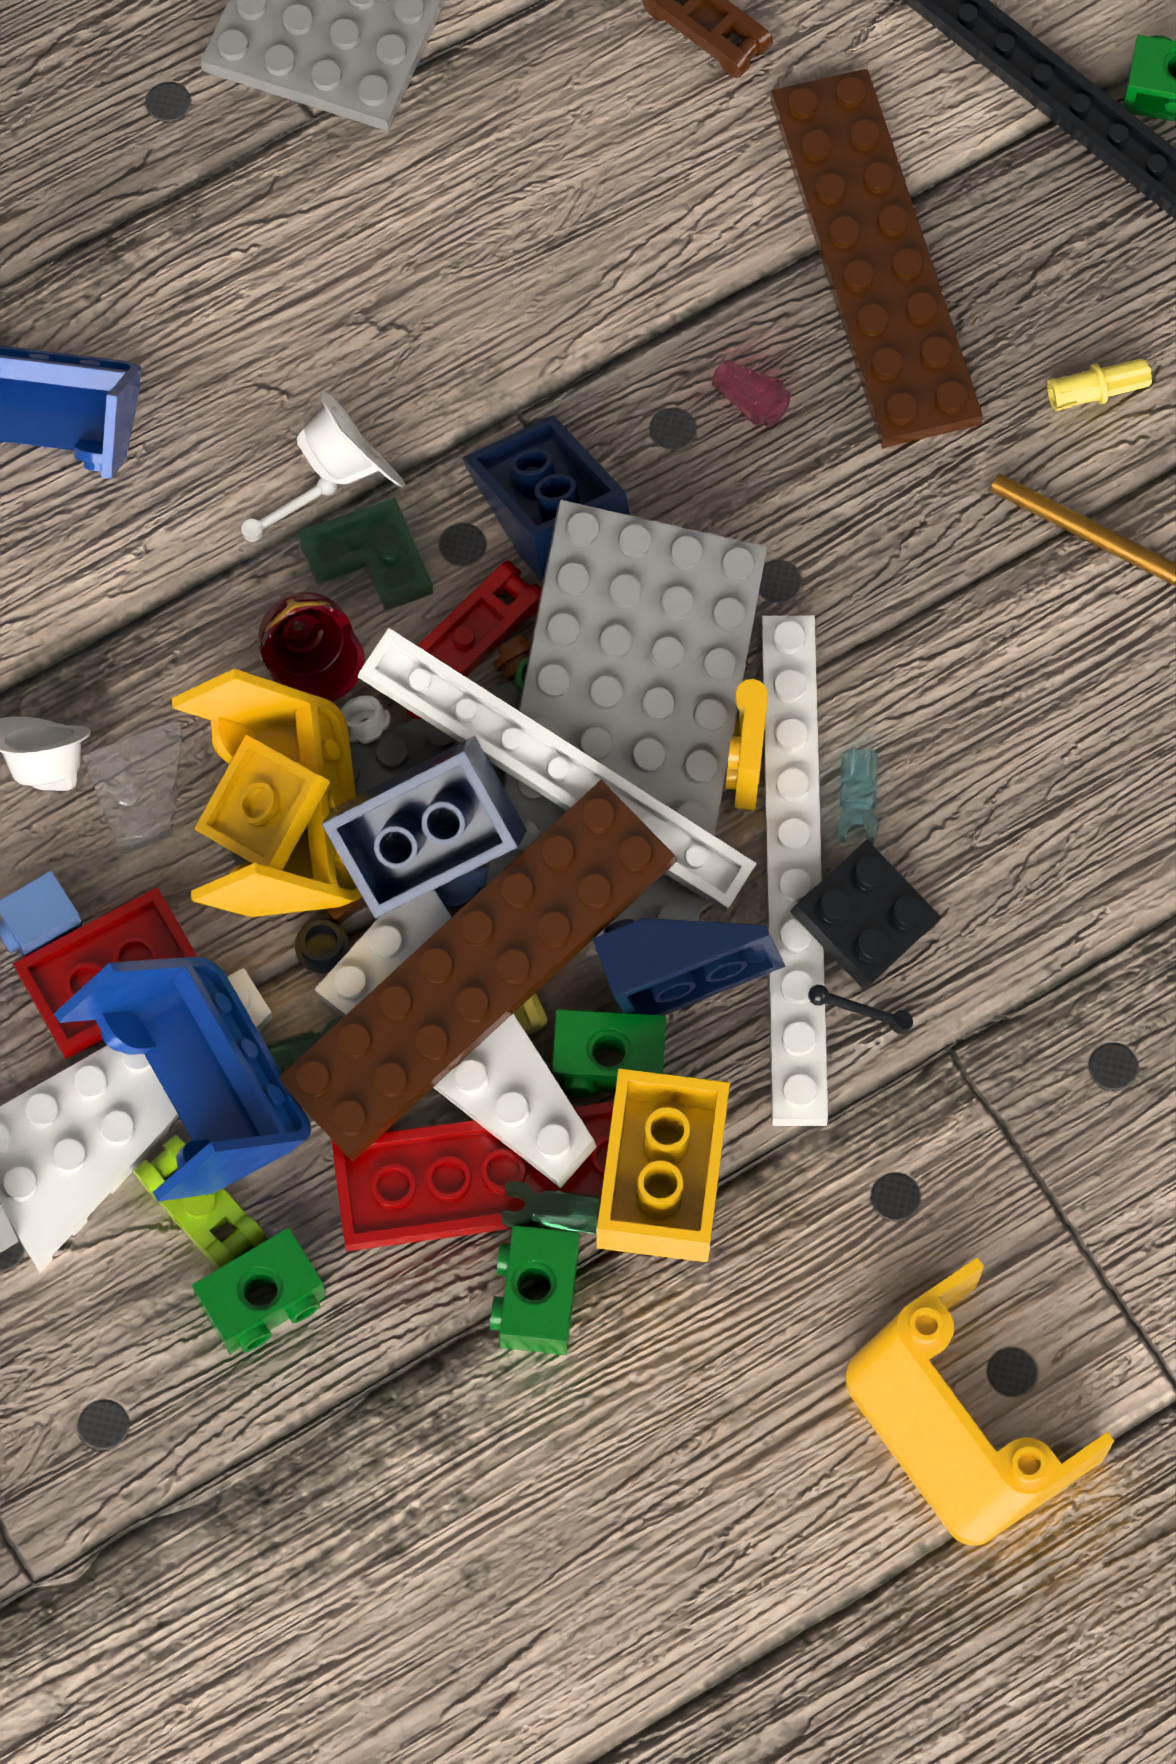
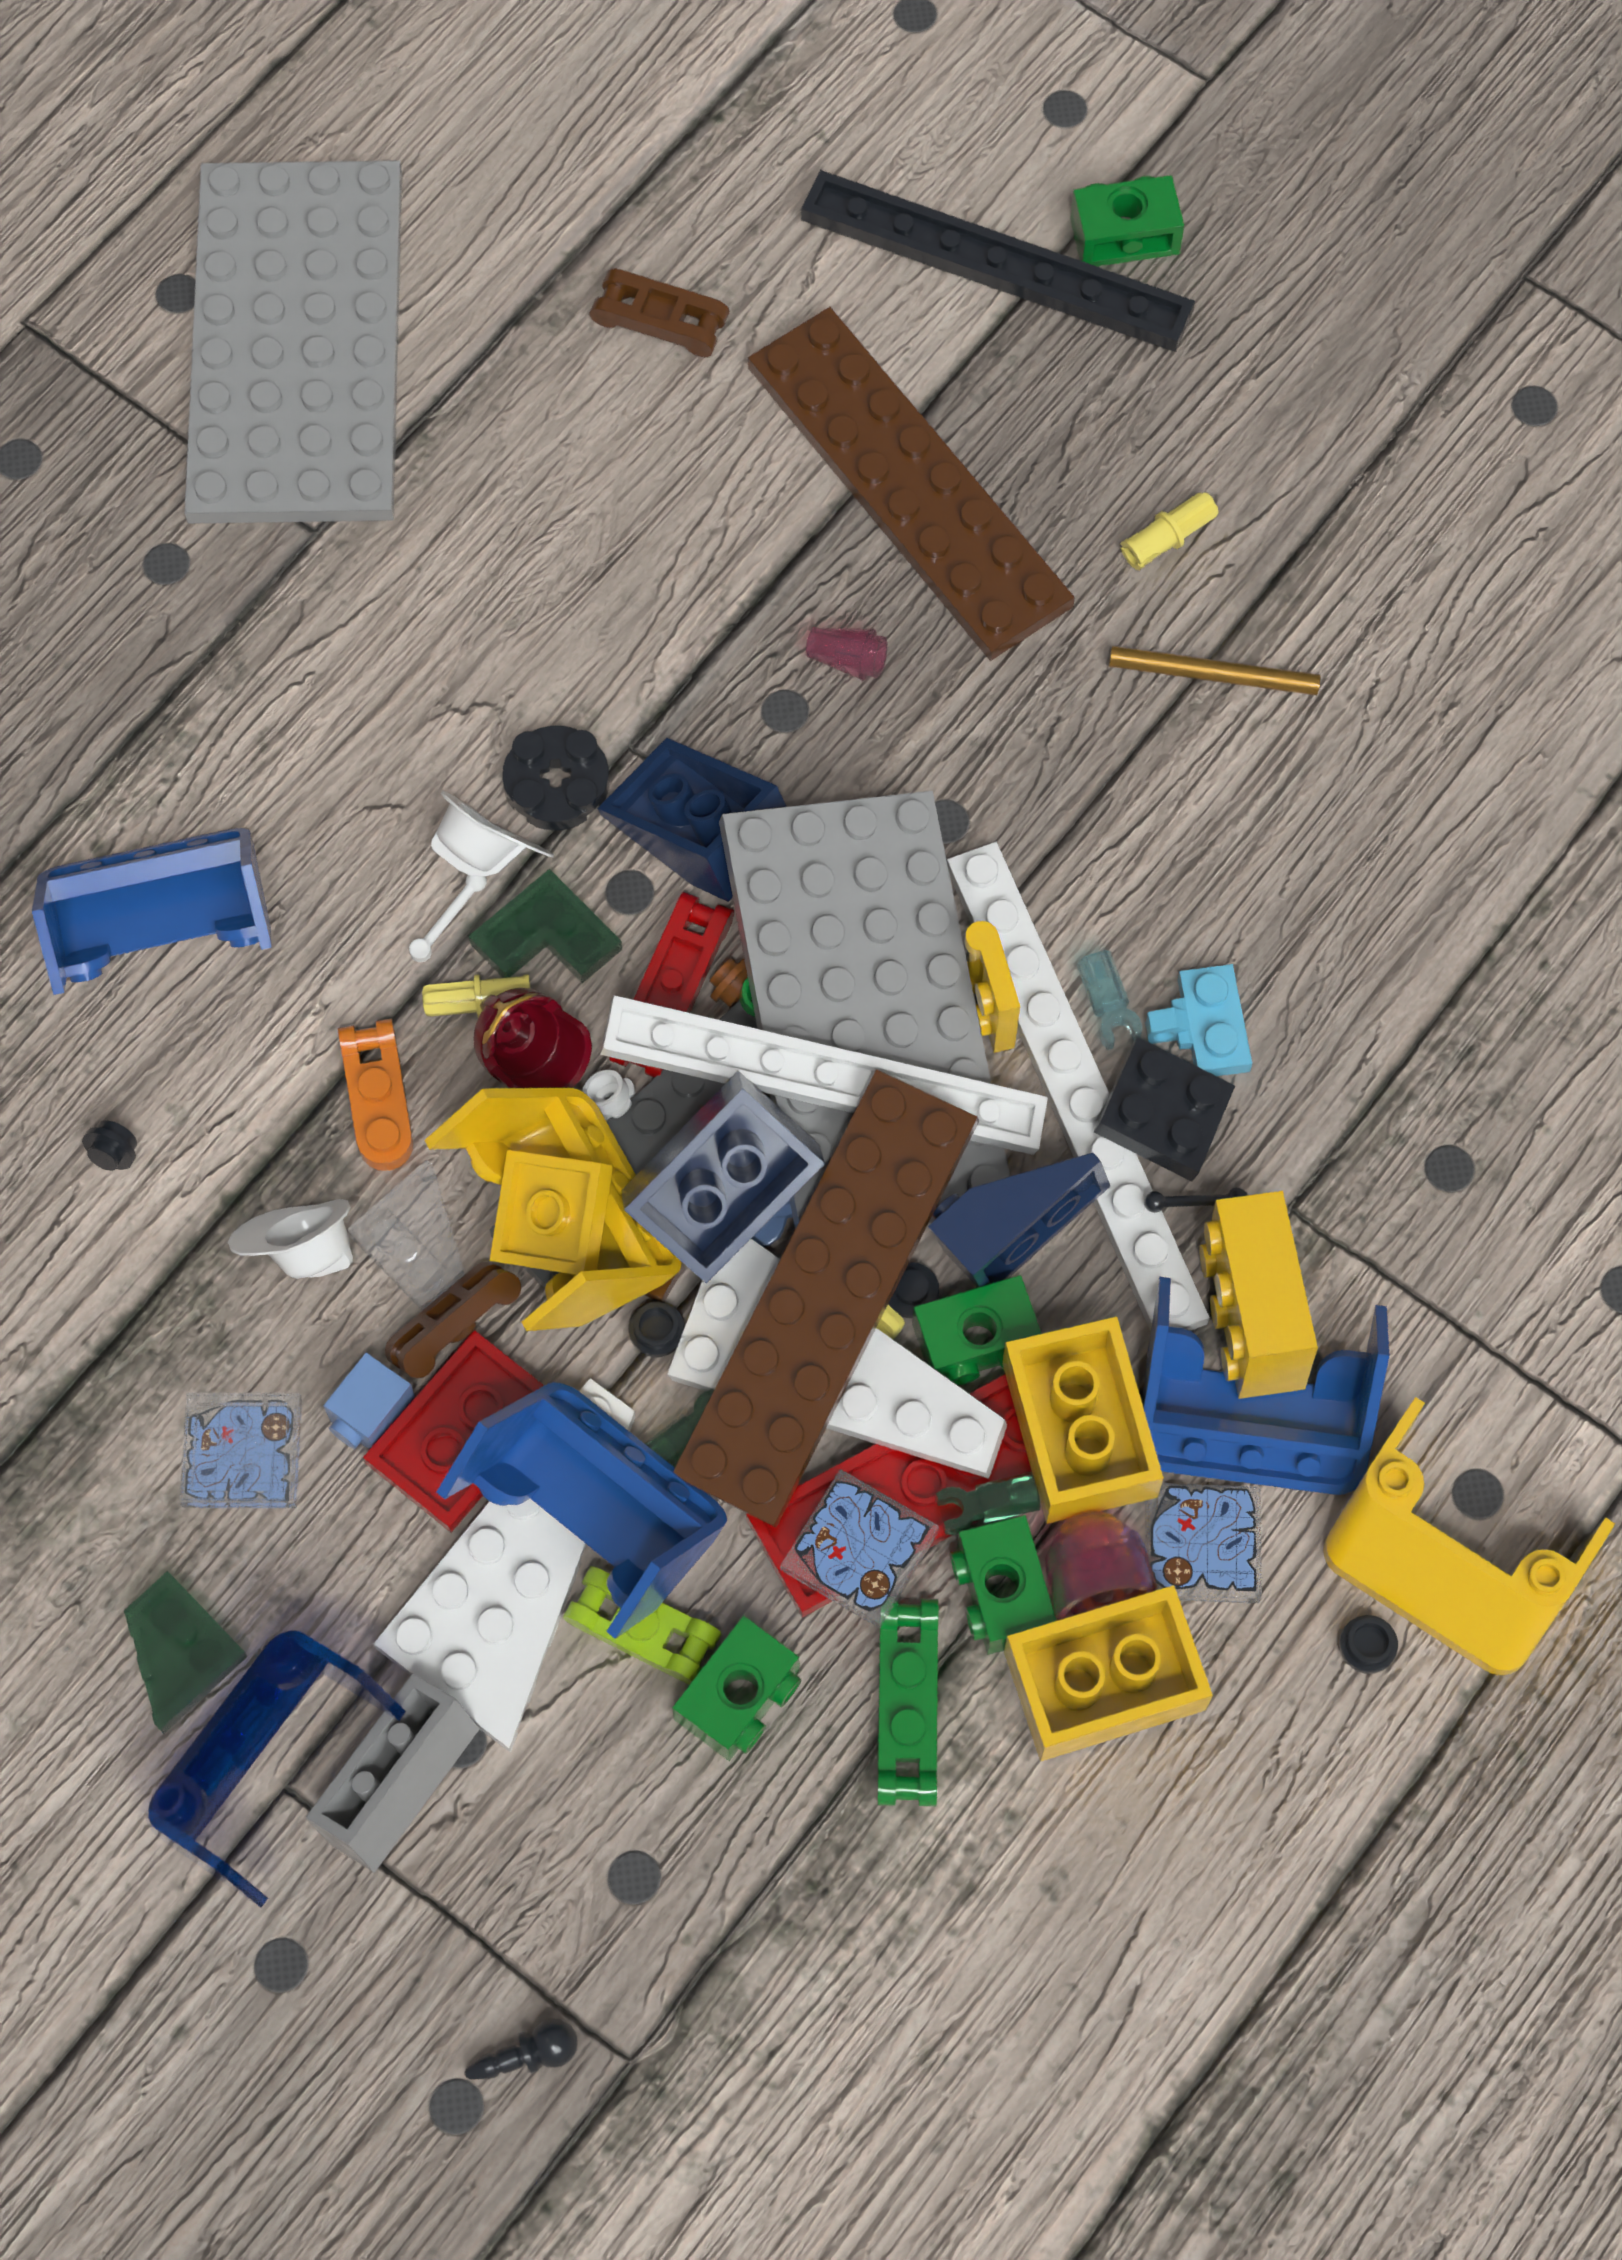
camera: 20 degrees left, 0 degrees up
(141, 868) = (450, 1317): none -> reddish brown plate
(159, 646) = (377, 1096): none -> orange plate
(270, 584) = (466, 995): none -> light yellow axle
(409, 1362) = (908, 1704): none -> green plate
(418, 1207) = (860, 1548): none -> tile
(437, 388) = (551, 748): none -> black plate
(566, 991) = (915, 1288): none -> black plate
(595, 1402) = (1107, 1673): none -> yellow brick
(628, 1294) = (1093, 1556): none -> clear pink helmet
(737, 1321) = (1206, 1541): none -> tile
(824, 1229) = (1283, 1440): none -> blue windscreen
(850, 1468) = (1368, 1644): none -> black plate
(873, 1113) = (1258, 1295): none -> yellow brick
(940, 849) = (1206, 1021): none -> medium azure hinge

